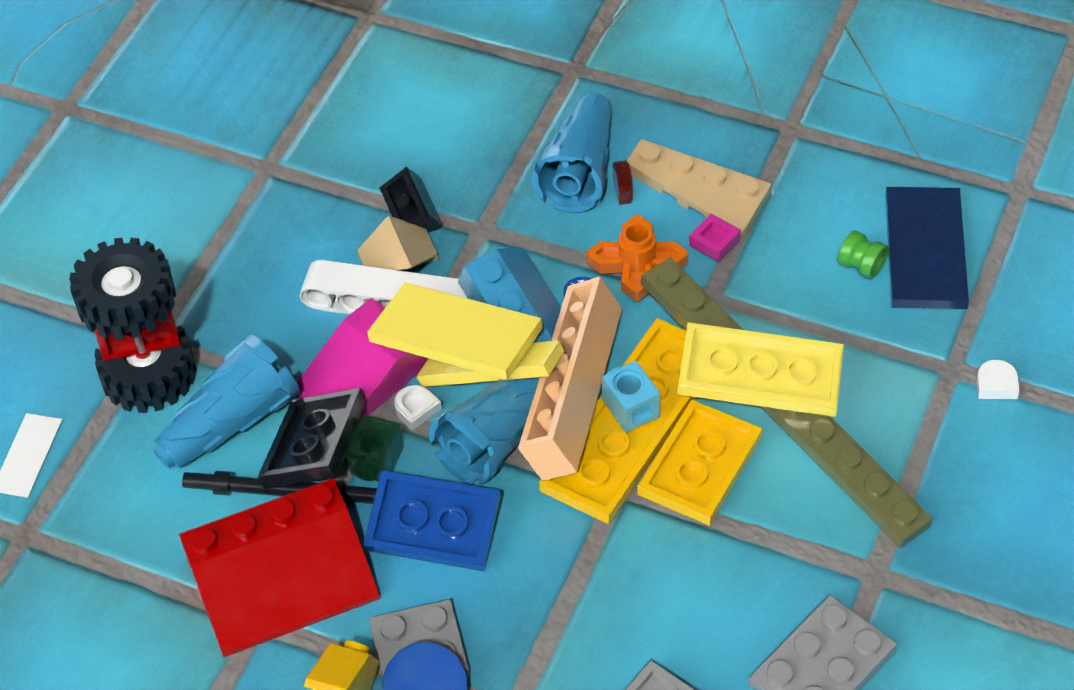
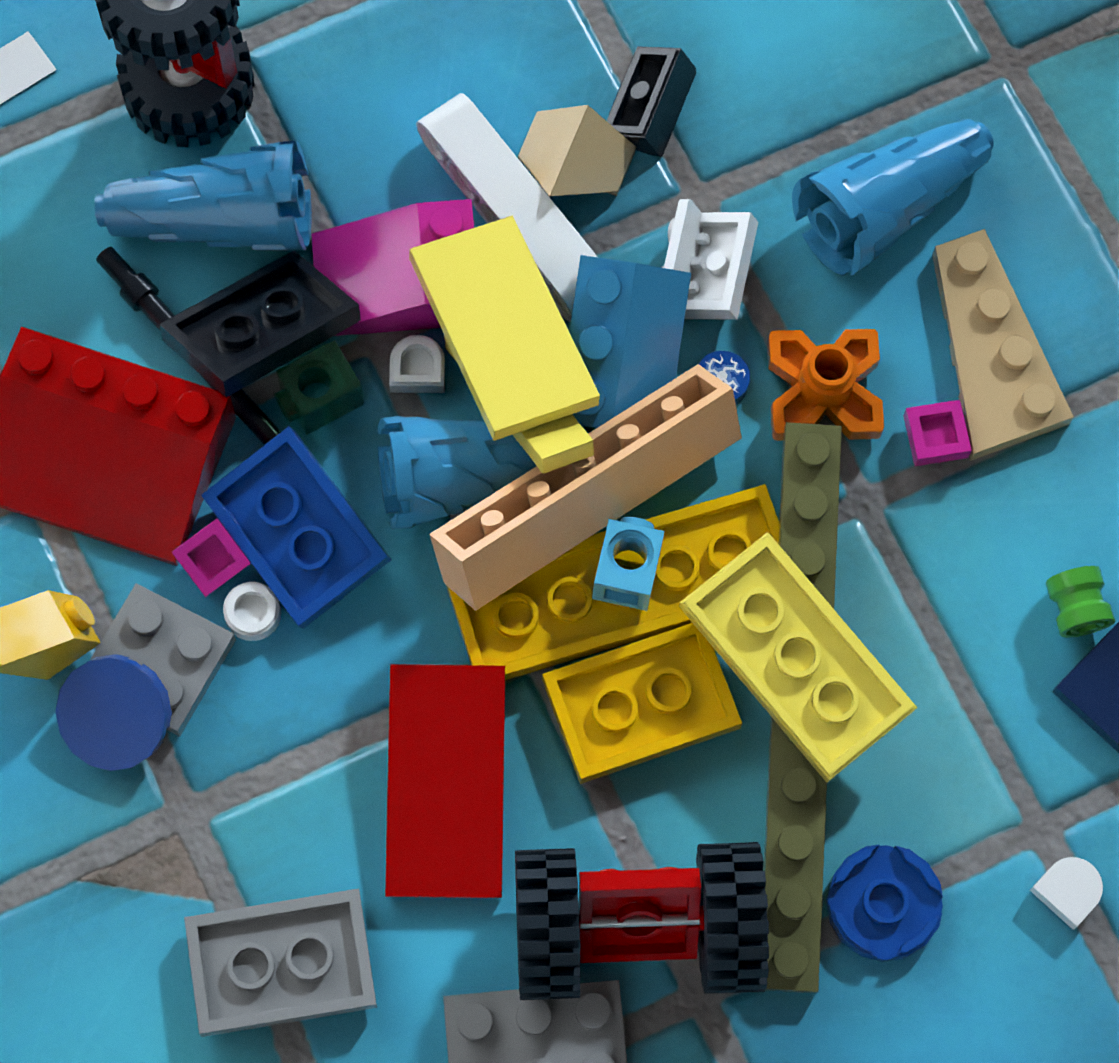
camera: 35 degrees right, 20 degrees up
(399, 572) = (211, 557): none -> dark pink plate
(446, 583) = (252, 611): none -> white tile
(522, 231) = (717, 255): none -> white bracket
(623, 182) = (906, 270): clear red tile -> none
(641, 575) = (445, 781): none -> red tile
(781, 573) = (642, 918): none -> black plate
(918, 457) = (884, 902): none -> blue tile

